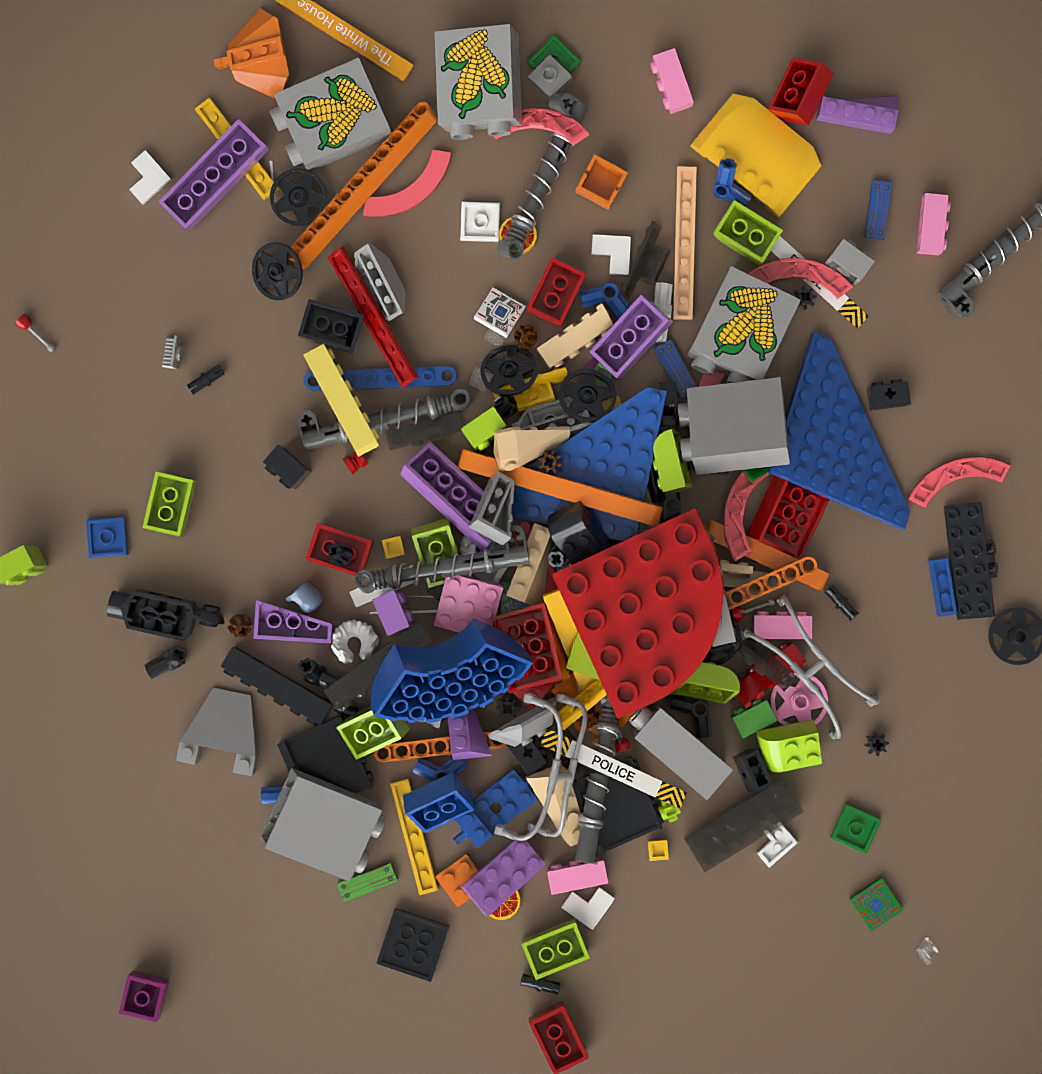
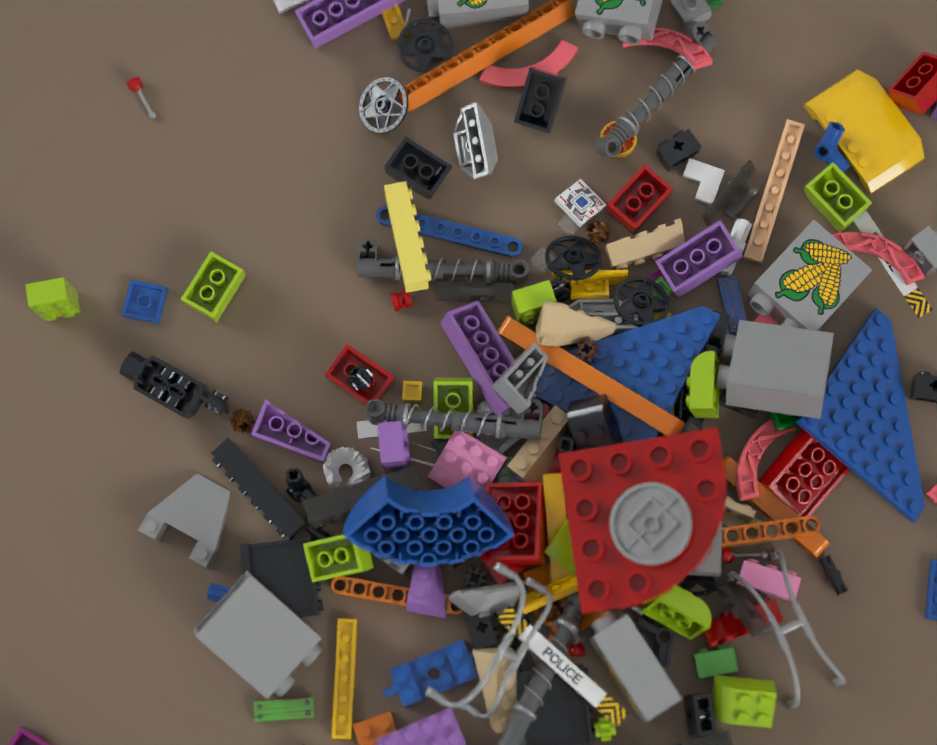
camera: 20 degrees right, 10 degrees down
(168, 661) = (164, 434): black piece -> none
(172, 352) = (263, 151): light grey piece -> none
(205, 379) = (285, 184): black pin -> none
(287, 467) = (336, 286): black brick -> none
(306, 596) = (314, 412): sand blue helmet -> none
(373, 317) = (460, 173): red tile -> none
(429, 219) = (540, 99): none -> black brick
(429, 770) = (380, 618): blue piece -> none
(438, 802) = (379, 648): blue brick -> none
(480, 221) = (586, 117): white tile -> none
(589, 224) = (672, 158): none -> black brick
(596, 296) = (693, 226): blue piece -> none
(602, 182) = (713, 112): orange piece -> none
(658, 619) = (651, 523): none -> light grey plate
(671, 81) = (803, 42): bright pink brick -> none
(798, 702) = (764, 659): bright pink wheel -> none
(809, 298) = (876, 278): black gear -> none
(881, 747) = (834, 722): black gear -> none

